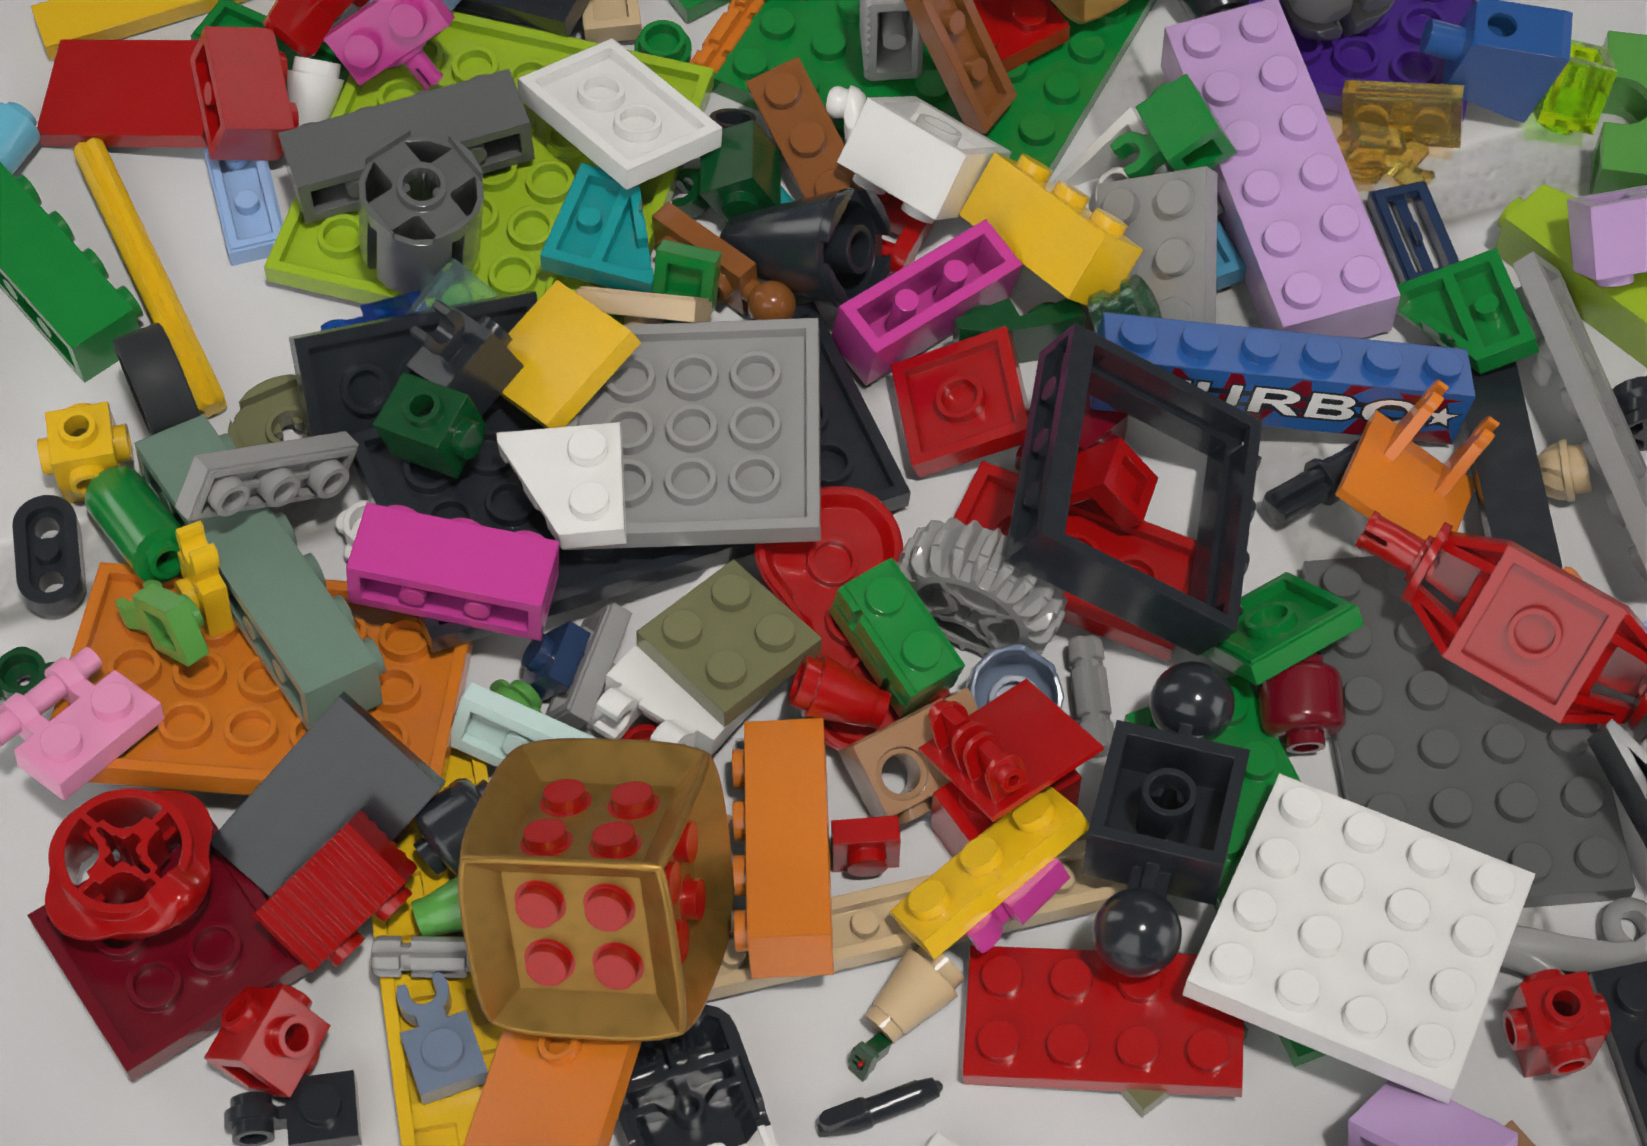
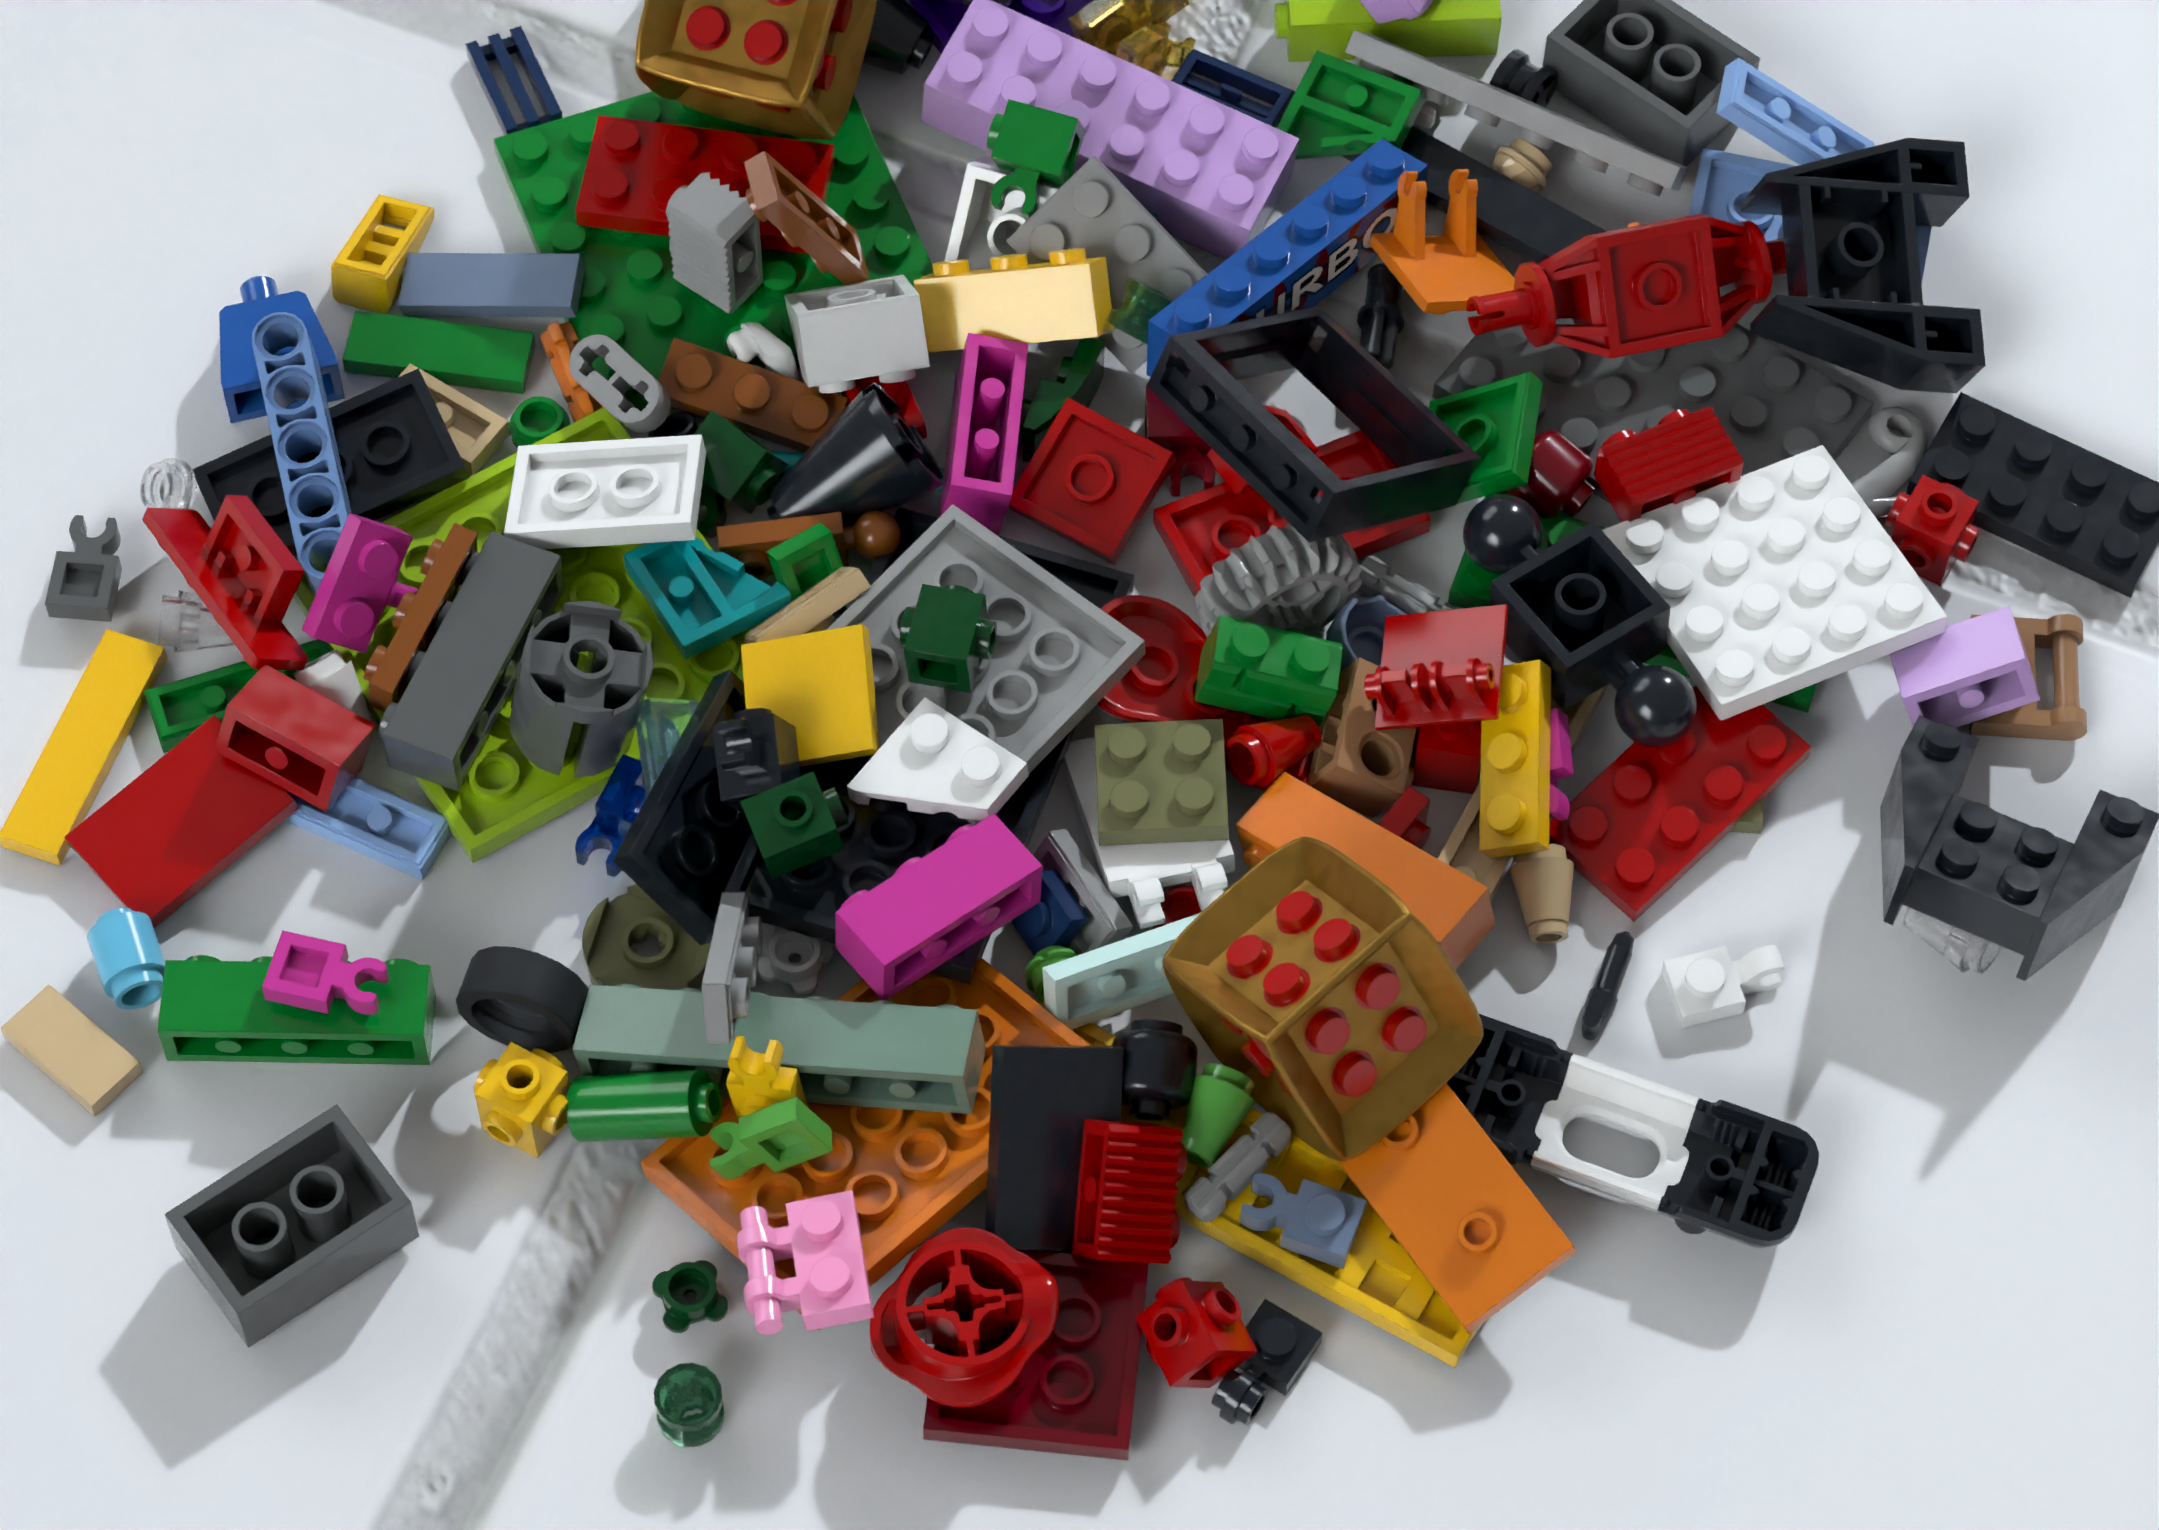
camera: 50 degrees left, 0 degrees up
(48, 560) = (595, 1197): black plate -> none
(52, 247) = (314, 971): none -> dark pink plate
(148, 272) = (362, 936): yellow axle -> none
(405, 78) = (417, 616): none -> dark orange plate
(683, 394) = (947, 637): none -> dark green brick
(740, 54) = (611, 392): none -> light grey beam
(866, 1055) = (1562, 961): dark green piece -> none
(1387, 769) = (1666, 462): none -> red brick

